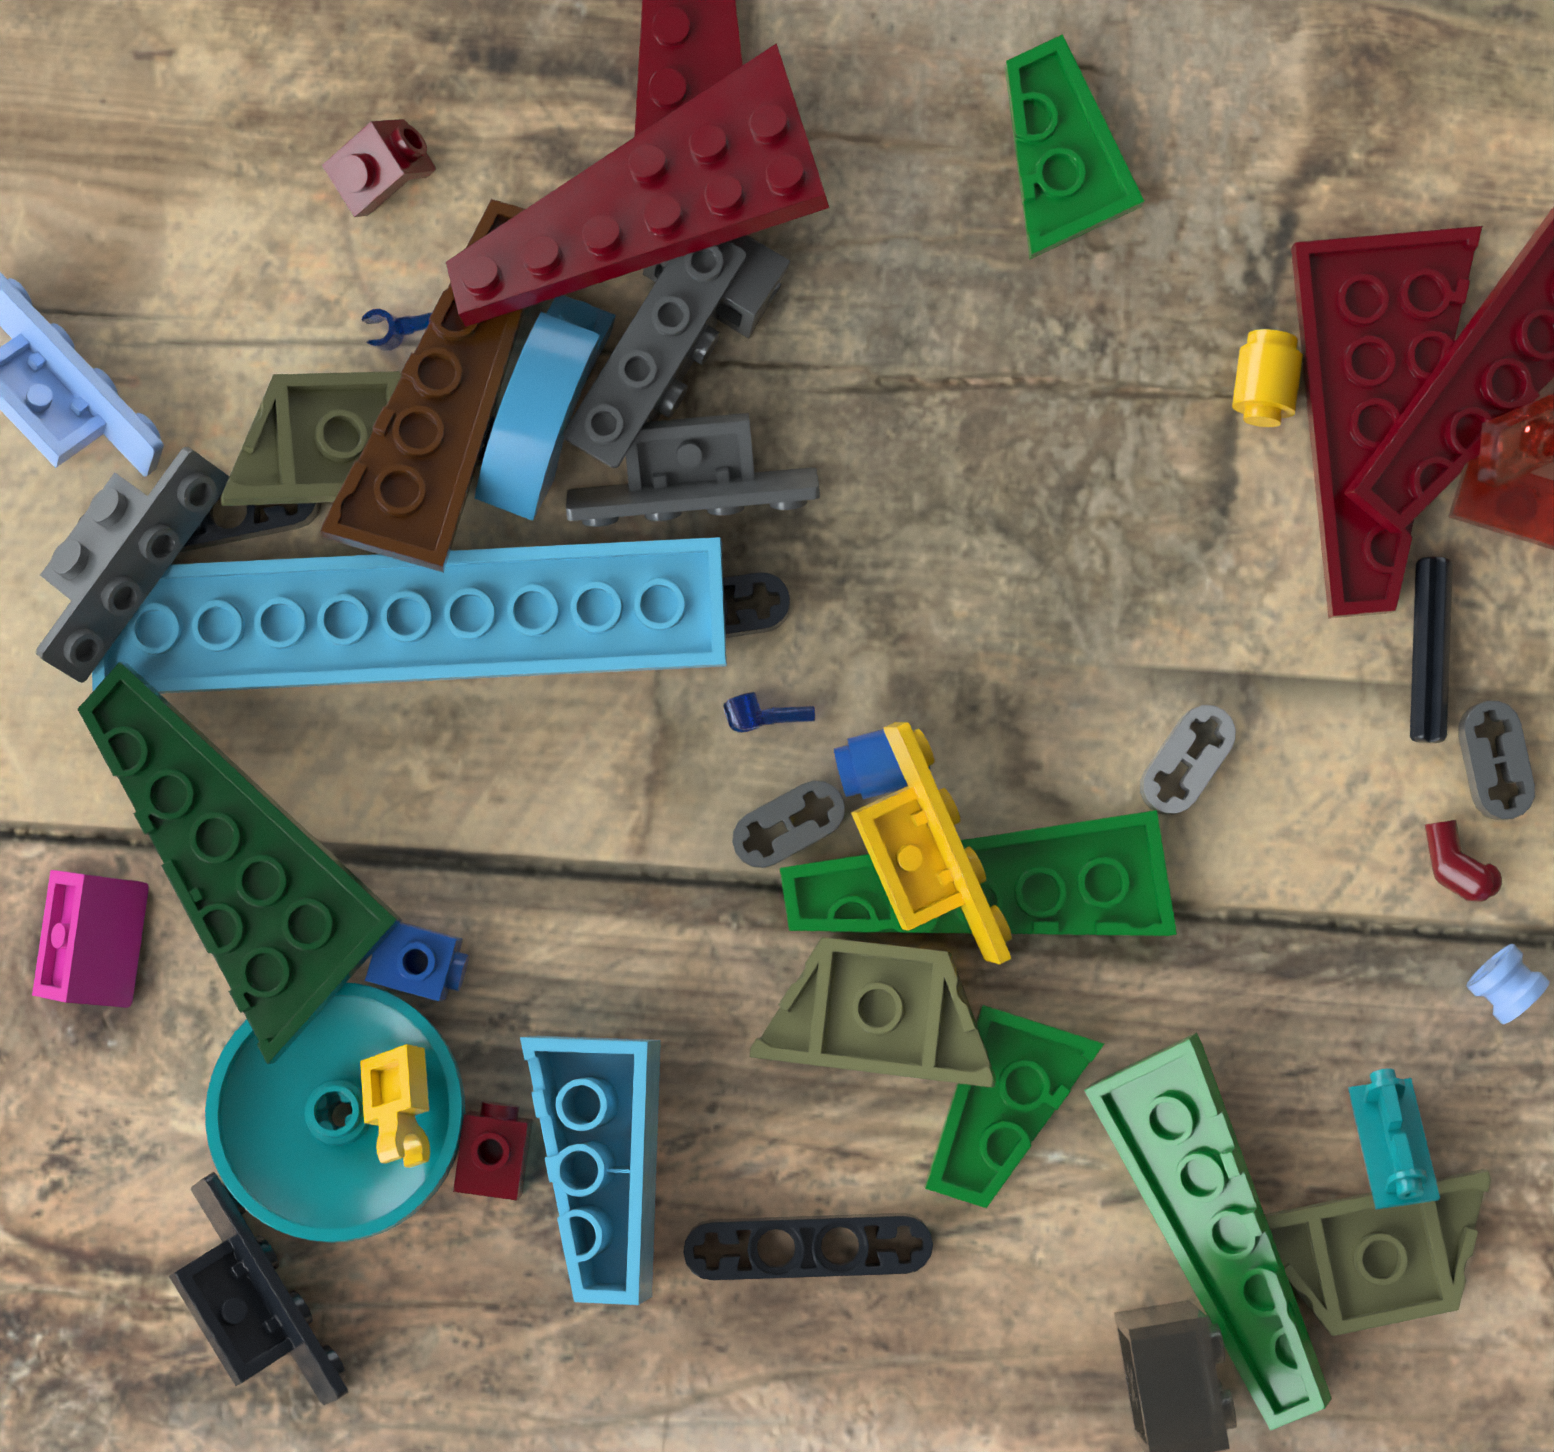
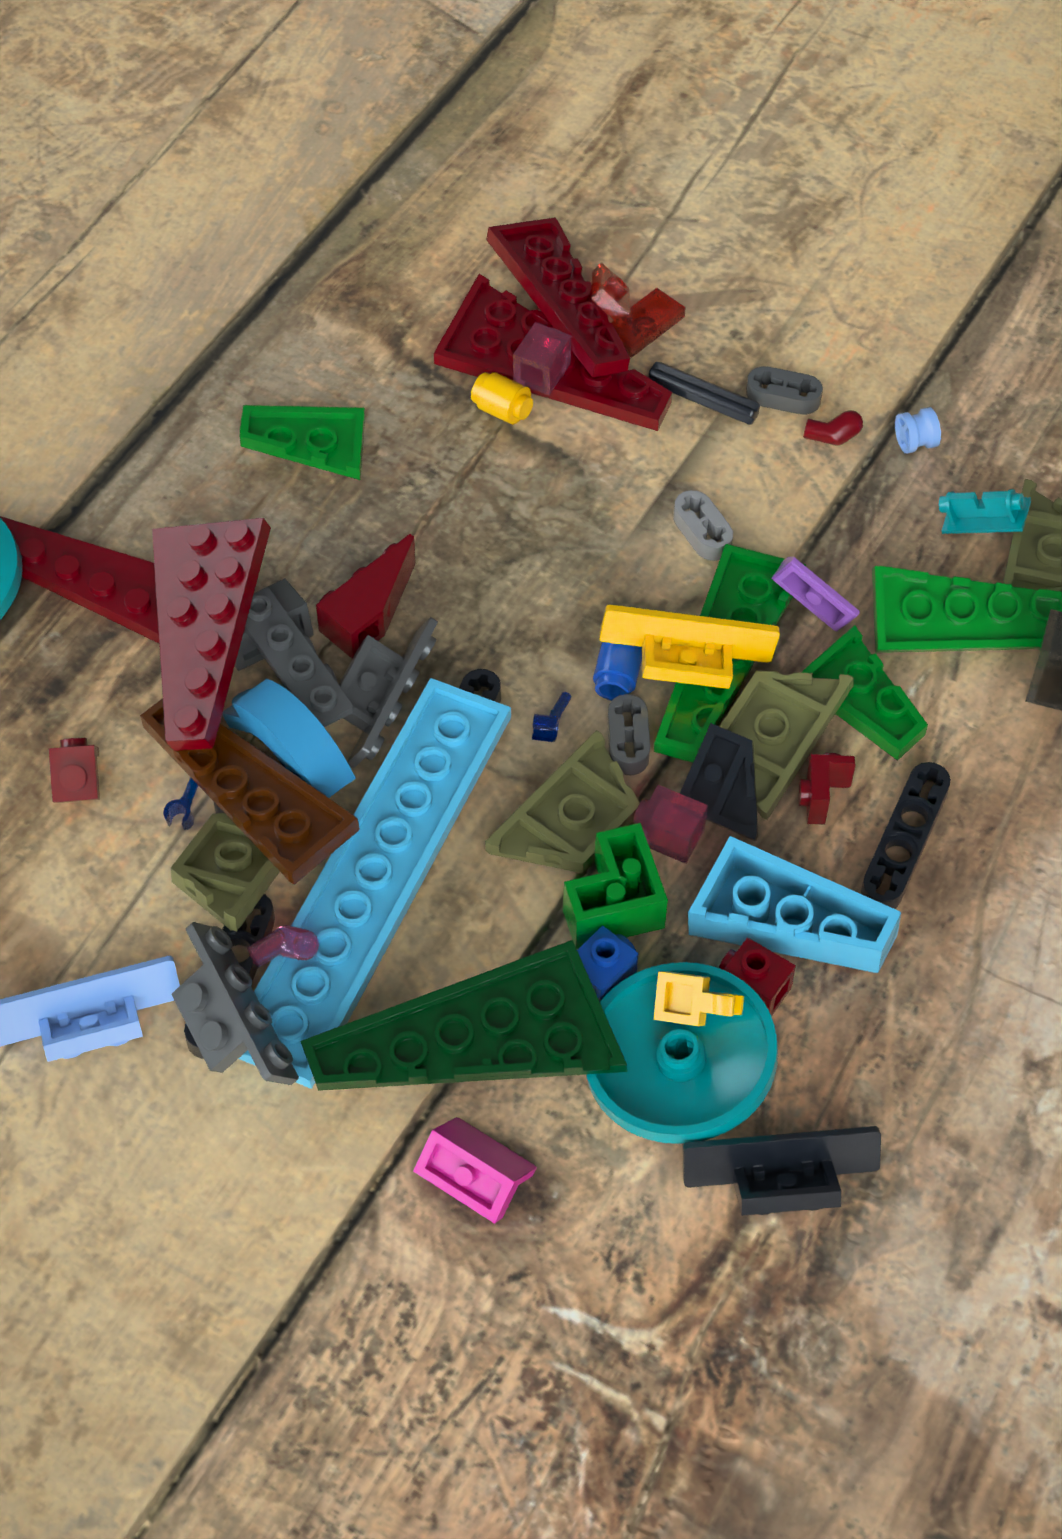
camera: 65 degrees left, 30 degrees down
(246, 571) = (284, 942): none -> clear pink arm
(521, 947) = (624, 893): none -> green brick
(629, 813) = (567, 811): none -> olive wing
(667, 944) = (672, 823): none -> clear pink brick
(756, 986) = (725, 781): none -> black wing
(810, 1104) = (824, 772): none -> dark red bracket
(813, 386) = (367, 599): none -> dark red slope
(1131, 969) = (814, 594): none -> medium lavender slope
(1346, 405) = (542, 358): none -> clear pink brick

